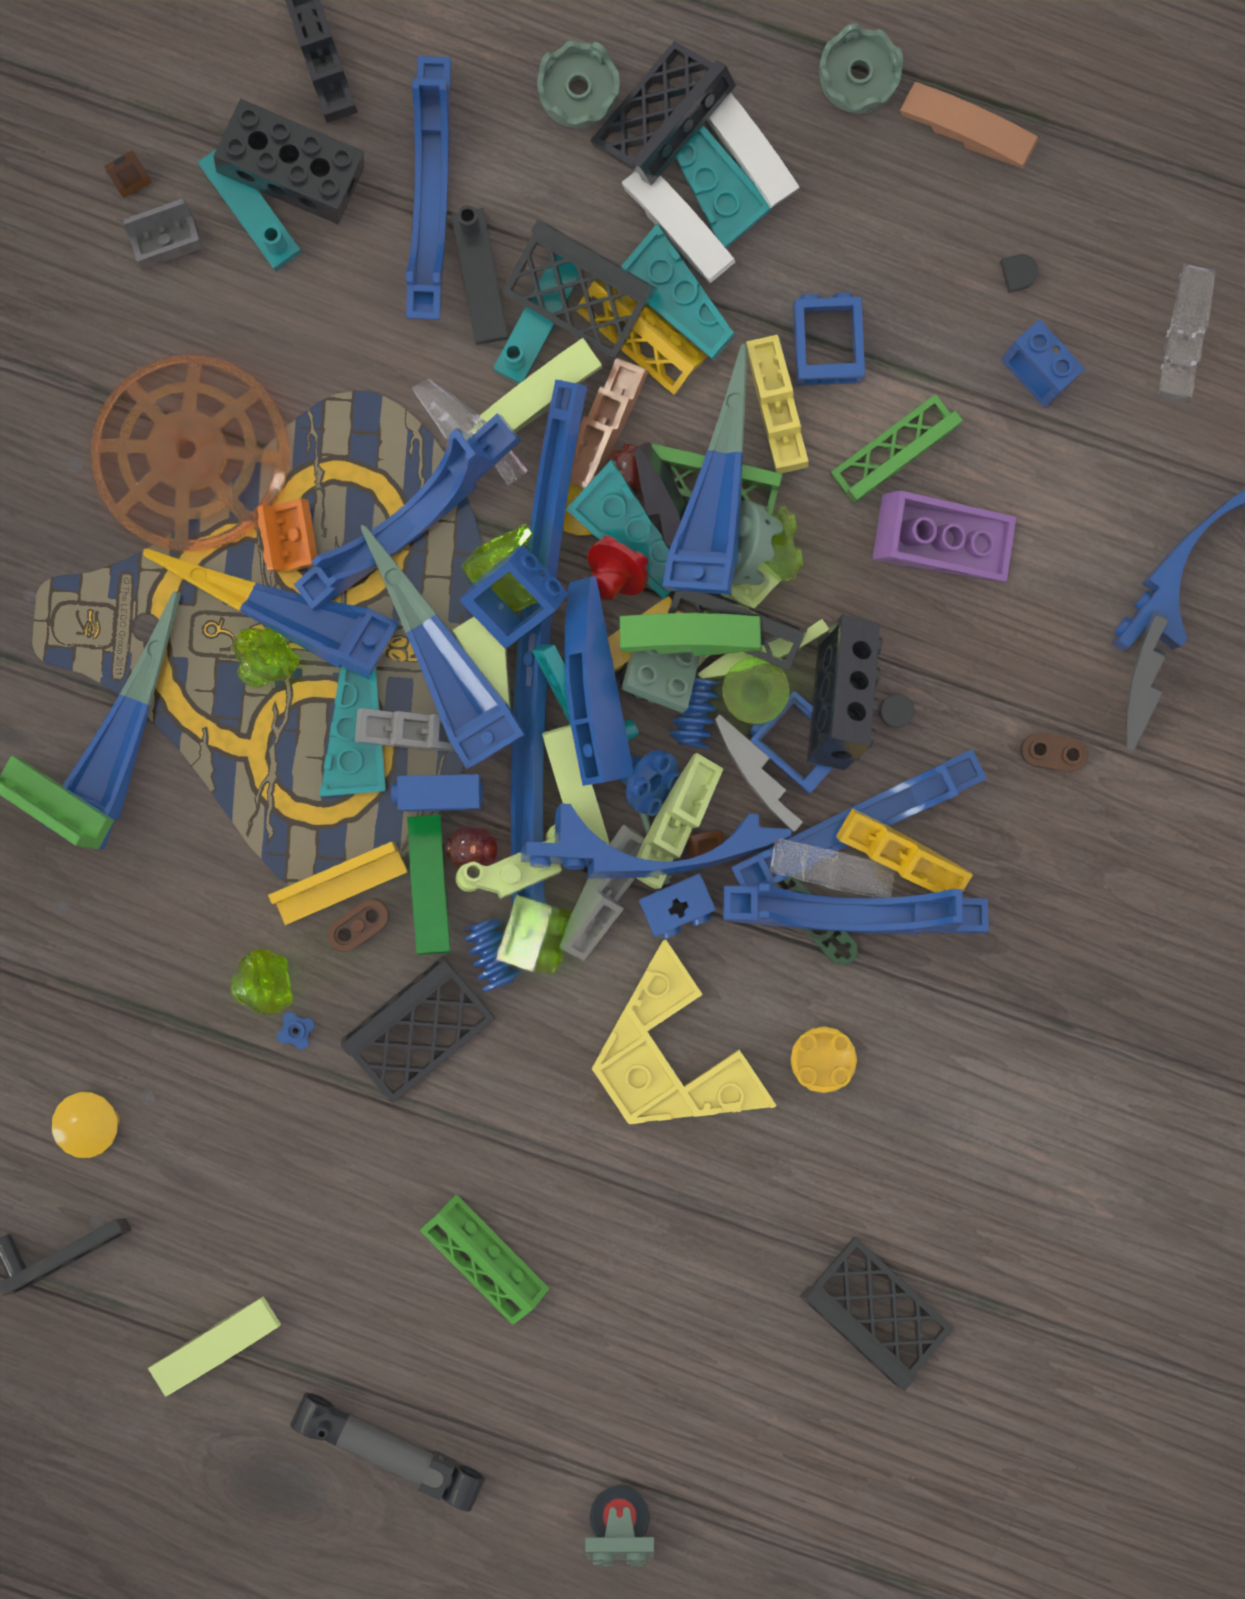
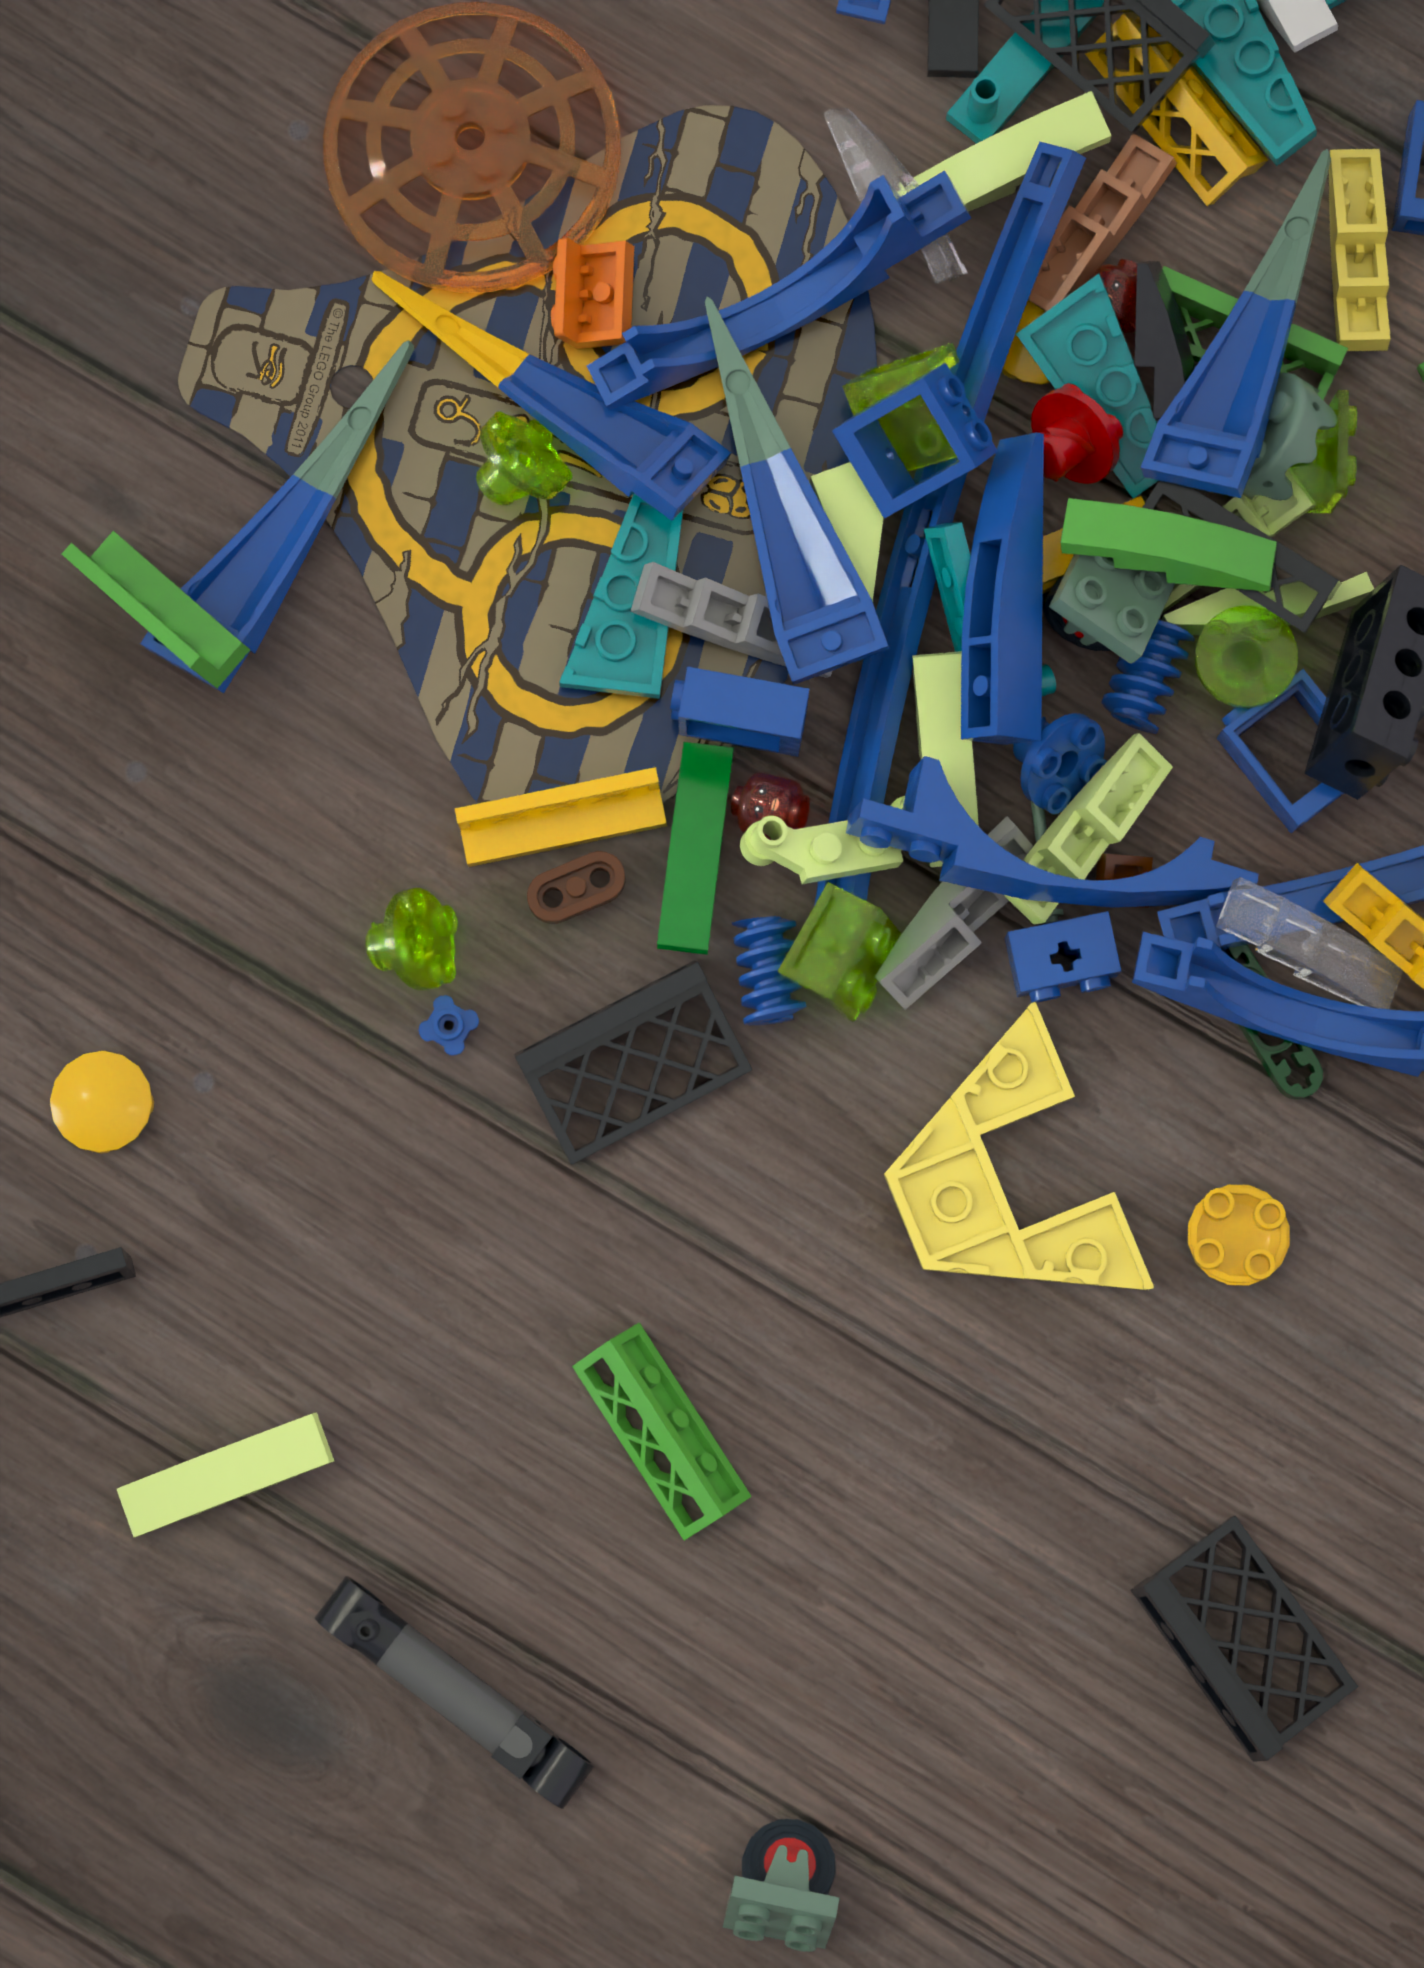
camera: 15 degrees right, 5 degrees down
(749, 761) = (1213, 765): light grey slope -> none

